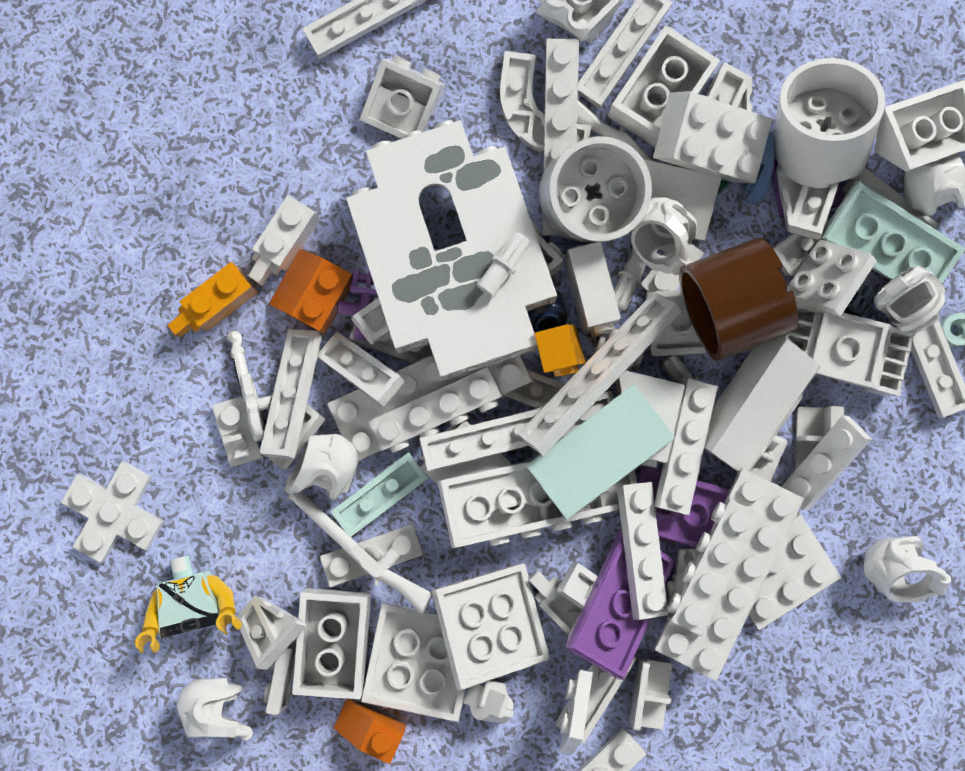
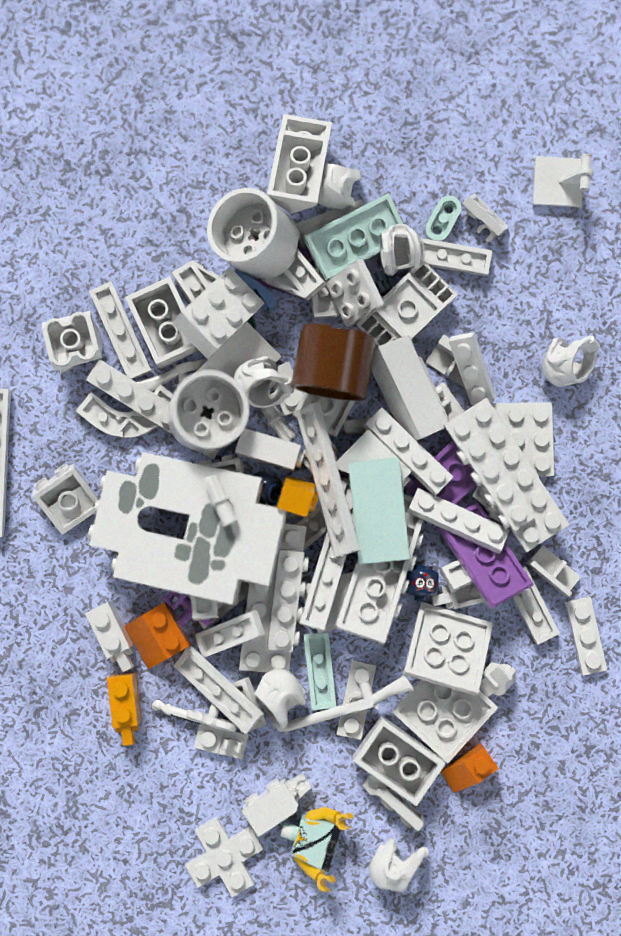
camera: 60 degrees left, 0 degrees up
(203, 533) = (275, 803): none -> white hinge
(267, 630) = (365, 797): white wing -> none
(547, 551) = (422, 582): none -> dark blue head
(574, 720) = (541, 631): white wing -> none

